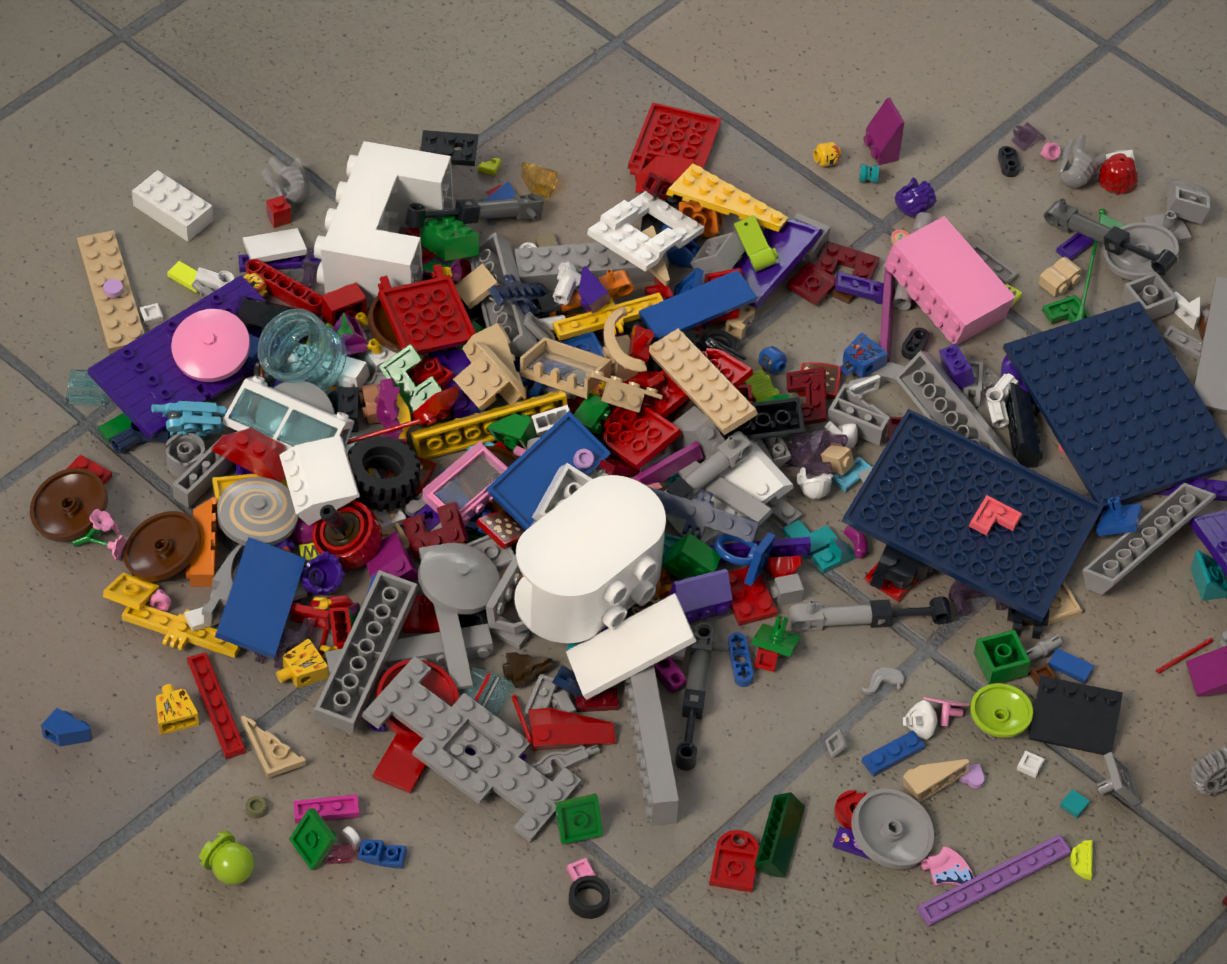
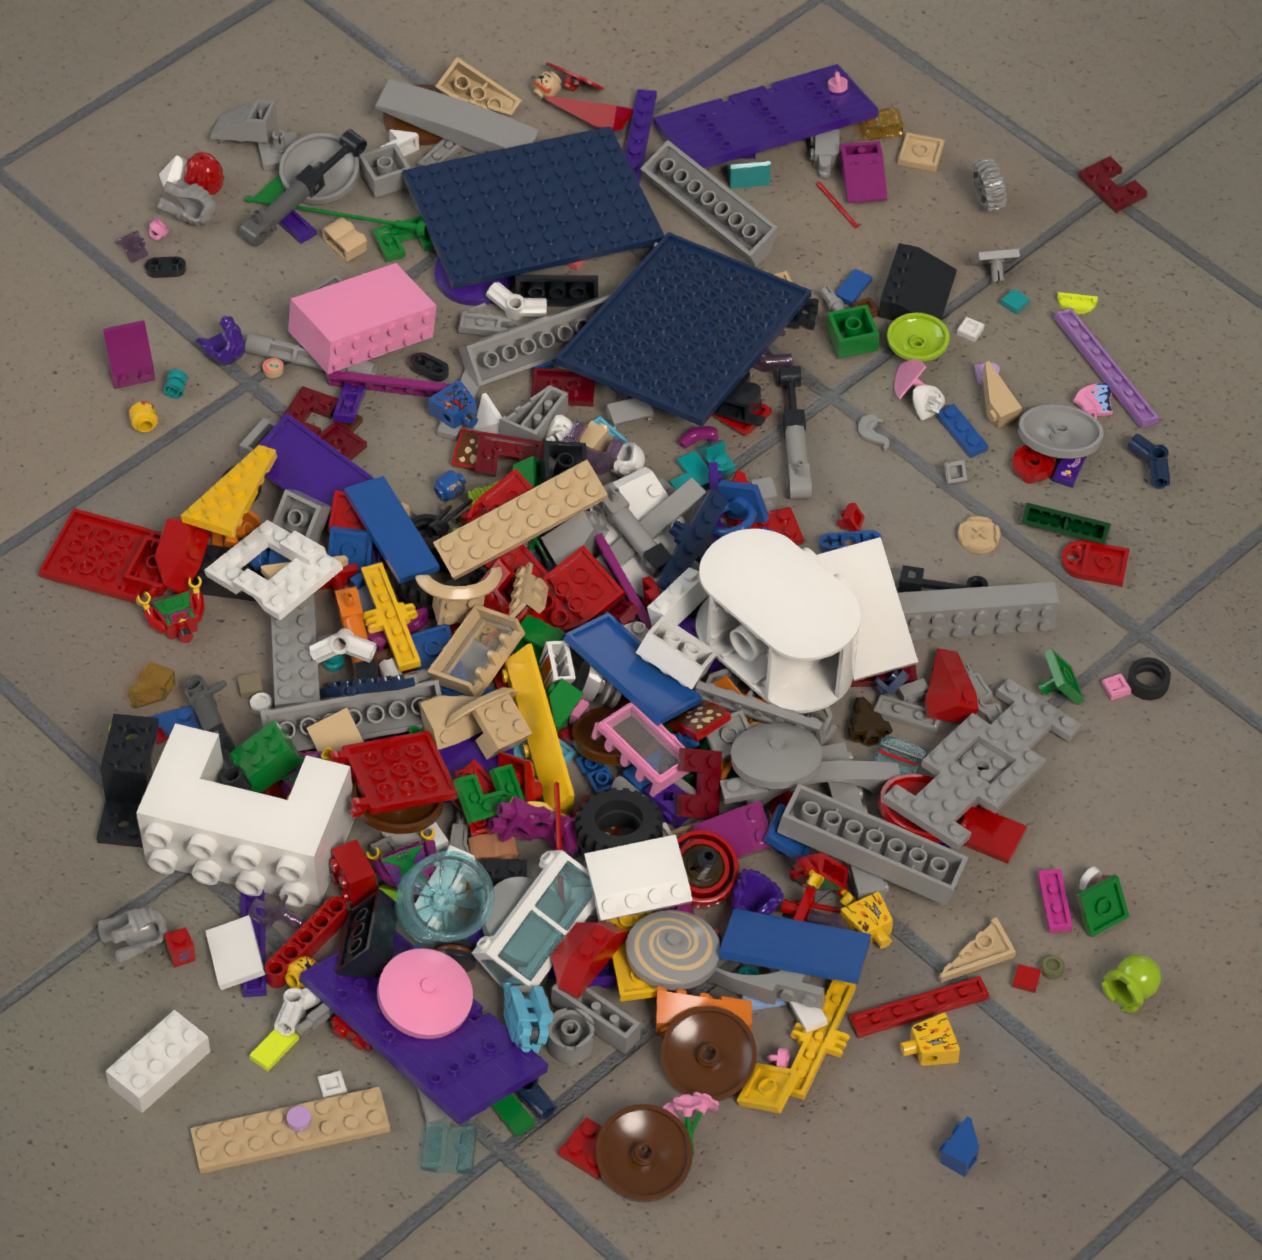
camera: 85 degrees left, 0 degrees up
(243, 786) = (1026, 978): none -> red tile
(308, 551) = (710, 915): neon yellow tile -> none
(383, 855) = (1106, 852): blue slope -> none
(522, 719) = (937, 723): red axle -> none
(583, 459) = (619, 634): lavender tile -> none
(592, 292) = (368, 619): dark purple slope -> none
(612, 186) = (176, 614): none -> torso
(640, 343) = (448, 577): red tile -> none
(660, 187) = (210, 551): dark red brick -> none
(755, 244) = (311, 475): lime door -> none
(761, 764) = (979, 535): none -> tan tile
(777, 638) = (831, 505): green tile -> none
(861, 916) = (1156, 459): none -> dark blue piece
(957, 366) = (476, 326): dark purple brick -> none
(994, 511) = (689, 308): coral tile -> none
(1119, 518) = (683, 220): blue tile -> none

